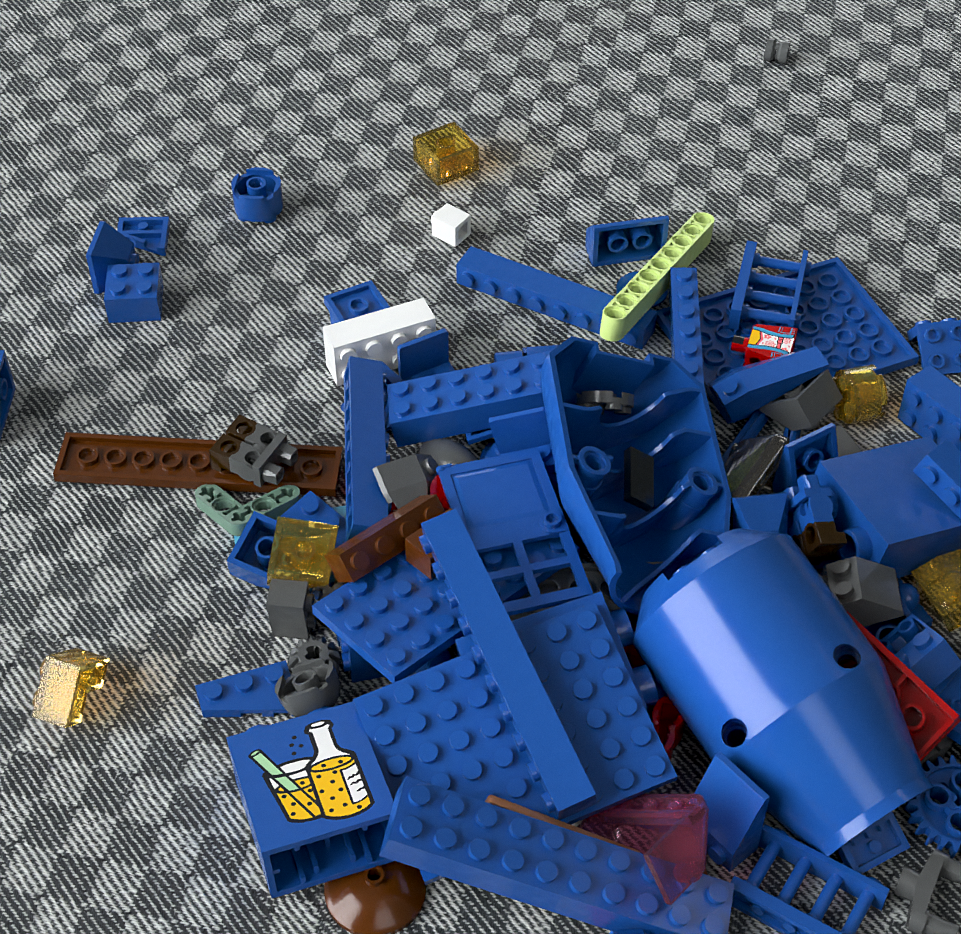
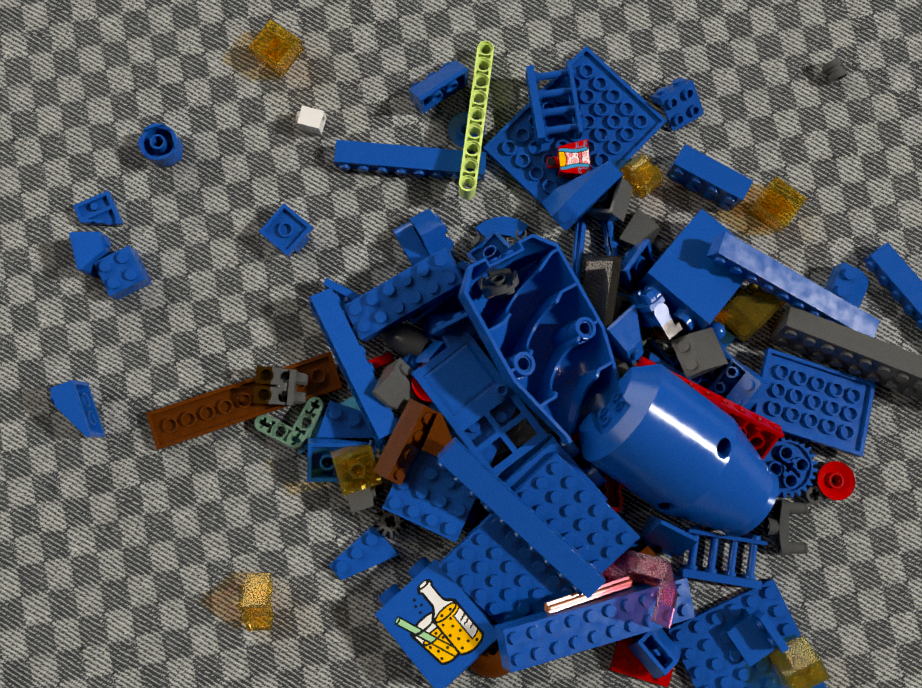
camera: 25 degrees left, 35 degrees up
(309, 688) = (400, 550): dark grey cylinder -> none
(376, 335) = (315, 255): white brick -> none
(424, 356) = (356, 263): blue bracket -> none
(638, 478) = (545, 341): black tile -> none
(685, 320) = (517, 176): blue brick -> none

